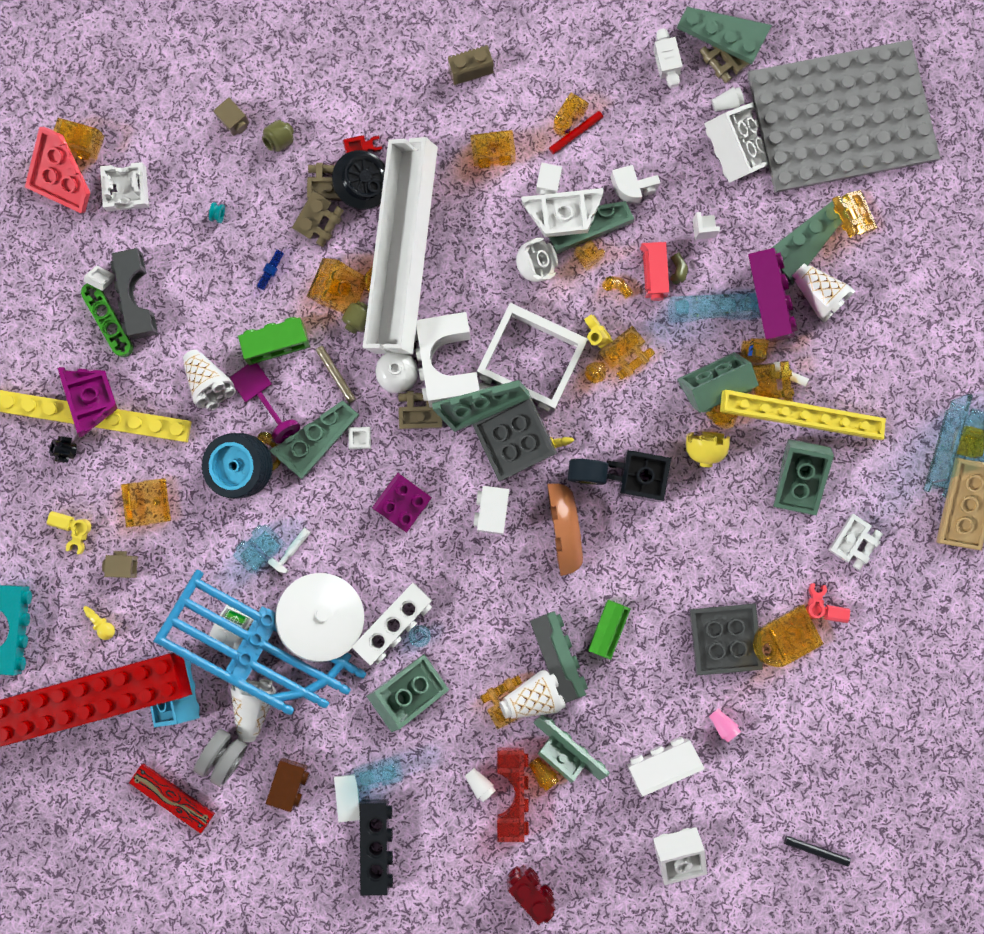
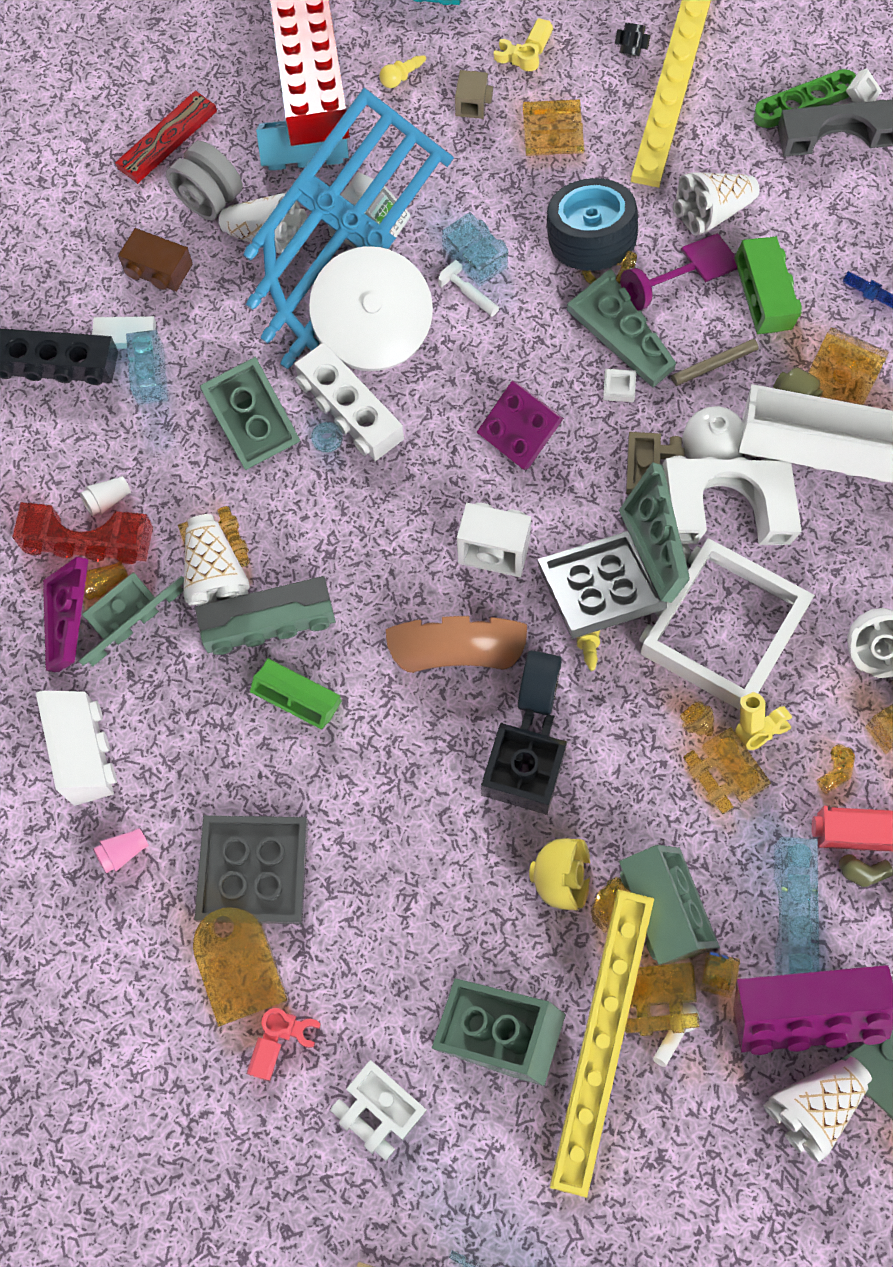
camera: 100 degrees right, 15 degrees down
(87, 397) = (698, 65): magenta wing -> none
(567, 796) = (62, 613): none -> magenta wing

